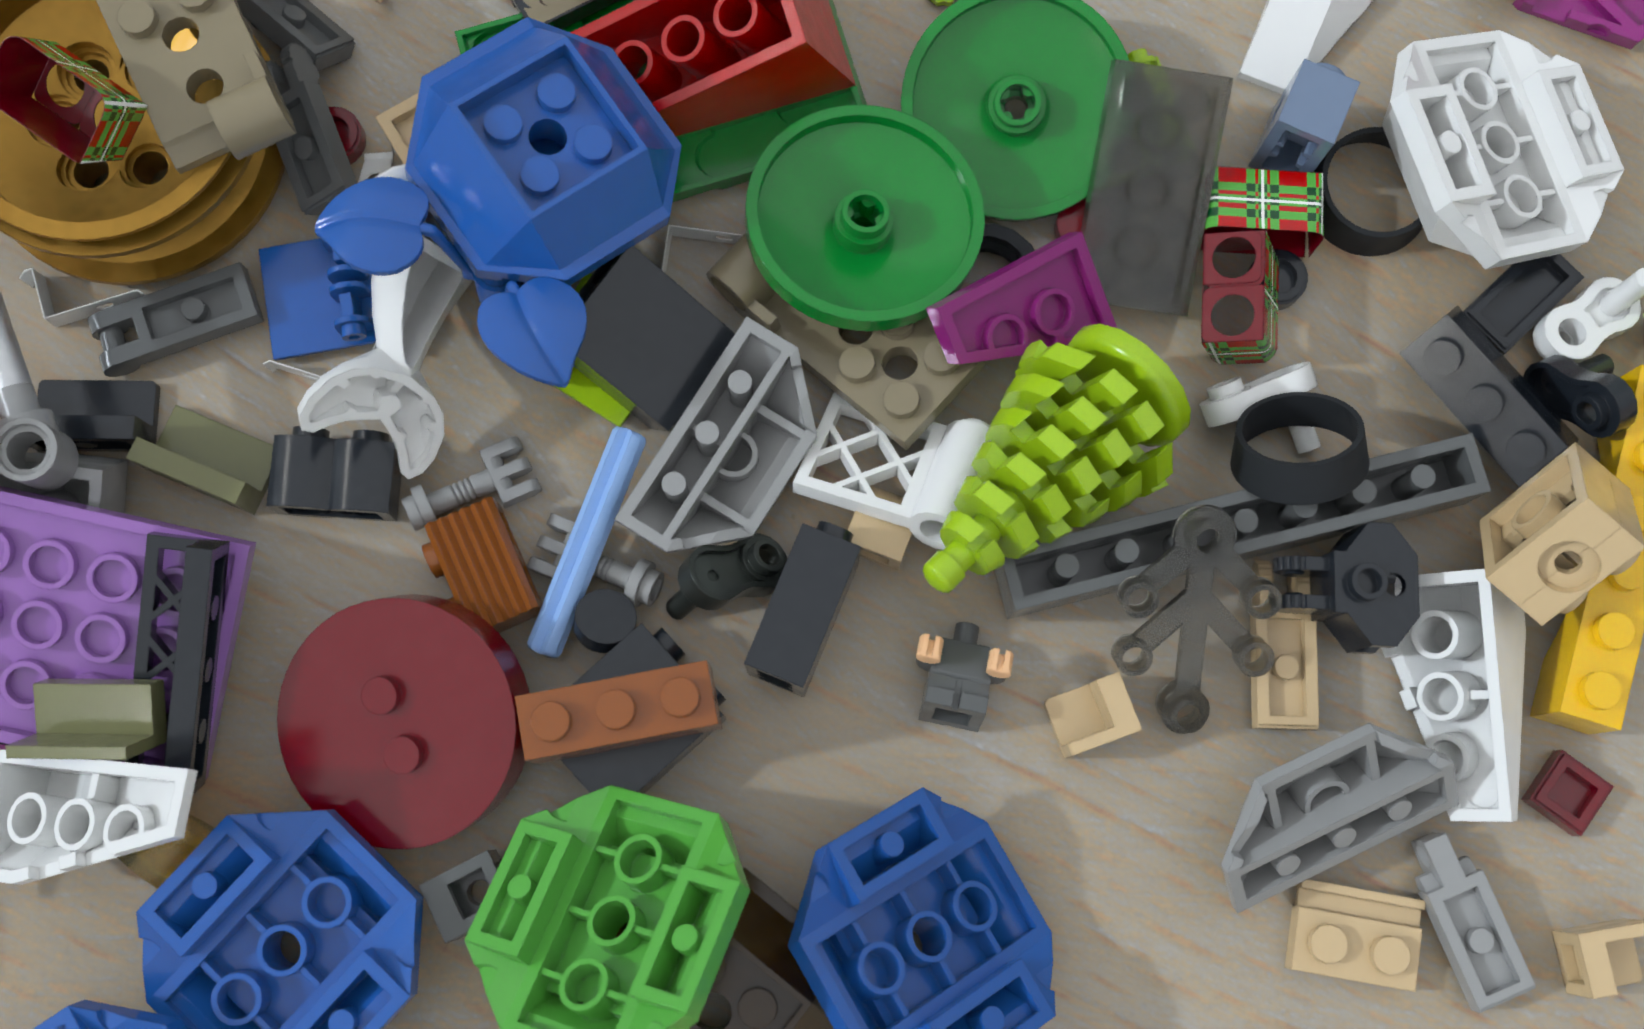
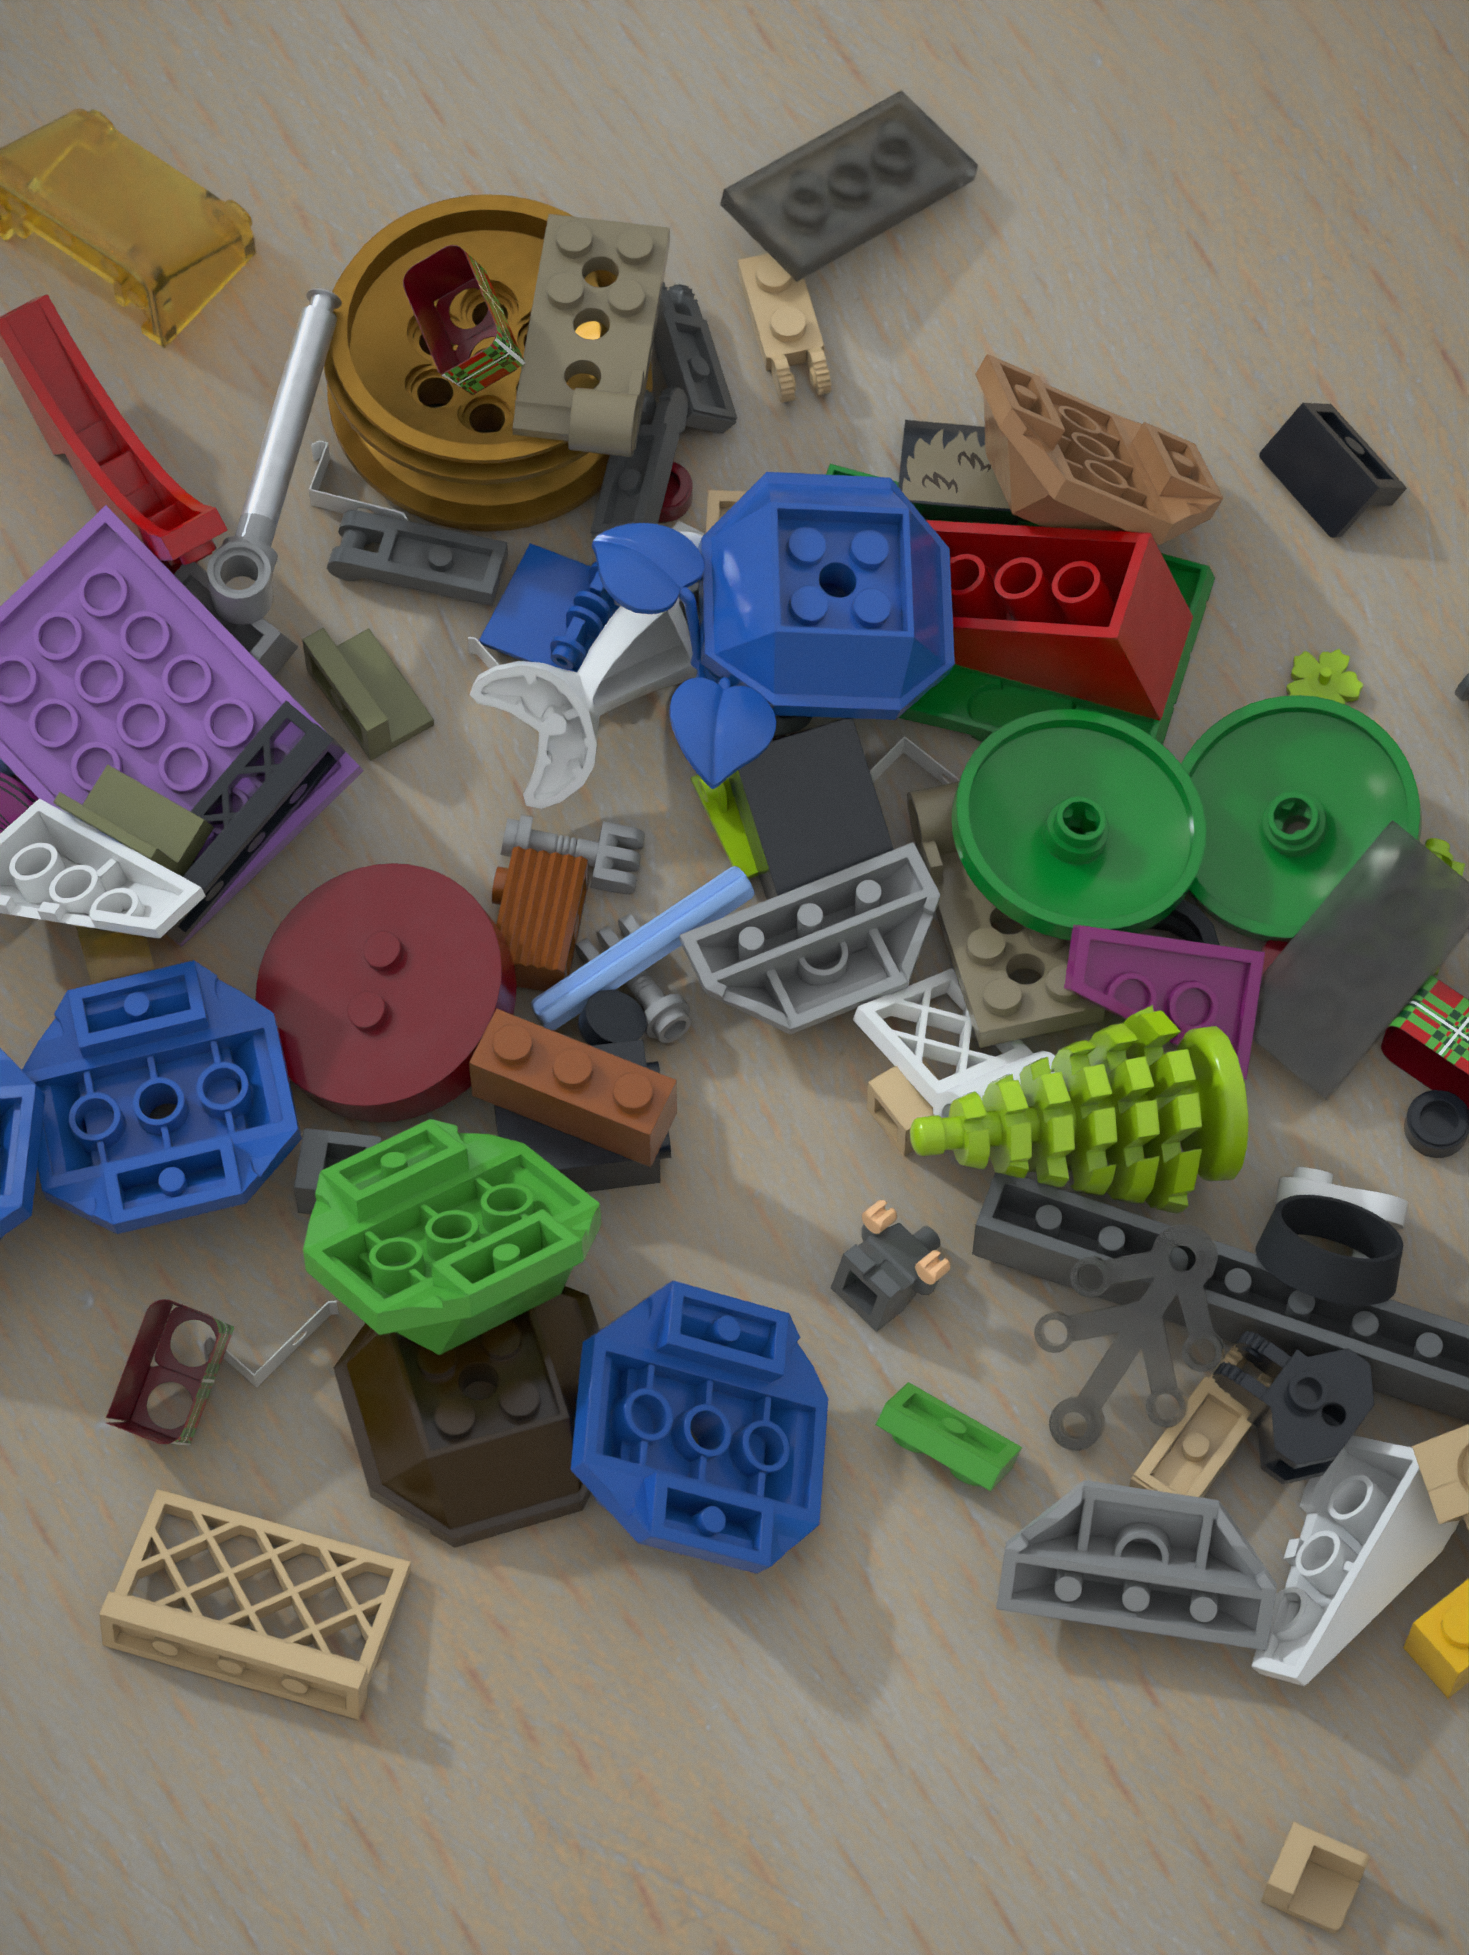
camera: 35 degrees right, 15 degrees down
(102, 412) = (306, 599): black panel -> none
(335, 476) = (464, 767): black brick -> none
(723, 573) = (744, 1047): pearl dark grey piece -> none
(804, 607) = (790, 1116): black brick -> none
(1092, 715) = (989, 1381): tan panel -> none
(1097, 787) = (949, 1436): none -> bright green plate
(1261, 338) = (1383, 1143): dark red piece -> none
(1355, 935) = (1096, 1717): tan plate -> none
(1470, 925) = (1206, 1773): light grey hinge -> none
(1567, 793) = (1386, 1729): dark red tile -> none

